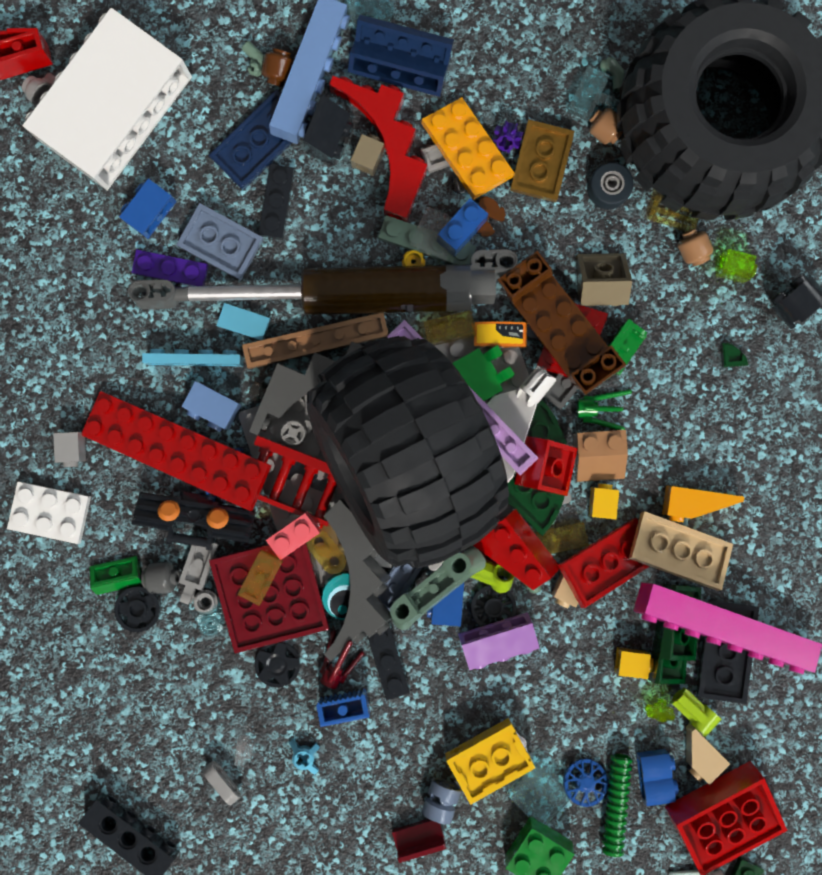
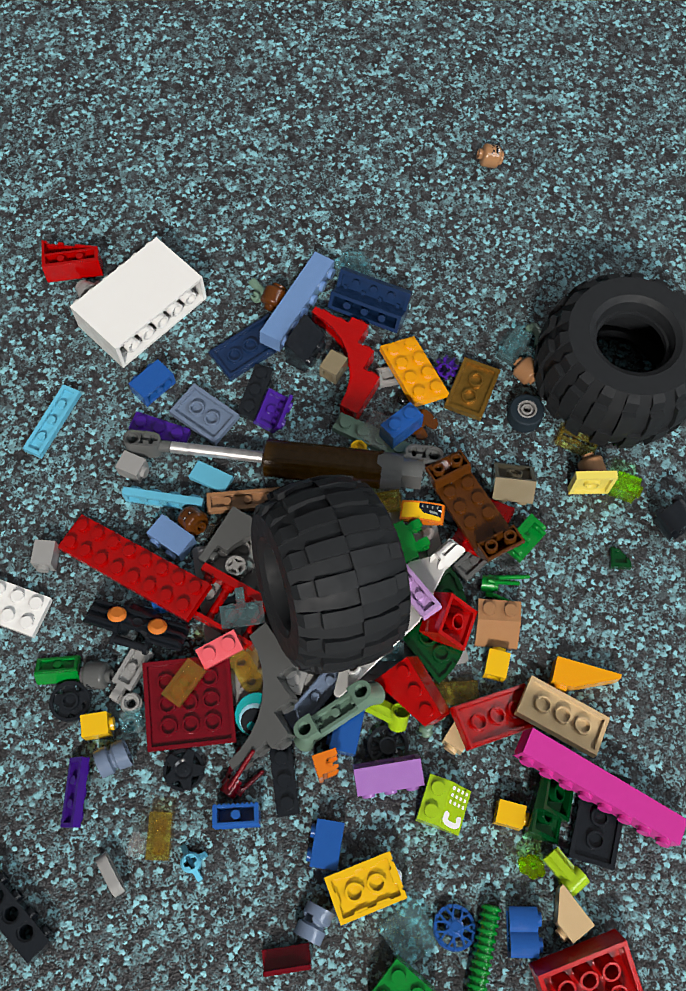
camera: 10 degrees right, 20 degrees down
(37, 276) = (52, 421): none -> medium azure plate
(147, 323) = (132, 467): none -> light grey brick
(166, 706) = (75, 792): none -> dark purple plate
(173, 633) = (97, 725): none -> yellow brick
(195, 668) = (109, 759): none -> sand blue wheel
(232, 382) = (193, 520): none -> reddish brown head
(265, 737) = (159, 836): none -> clear yellow plate
(303, 225) = (273, 411): none -> dark purple bracket
(311, 491) = (241, 613): none -> clear light blue plate
(428, 643) = (324, 765): none -> orange hinge
(443, 721) = (326, 844): none -> blue brick
(560, 662) = (443, 805): none -> lime slope
(698, 269) = (592, 482): none -> light yellow tile

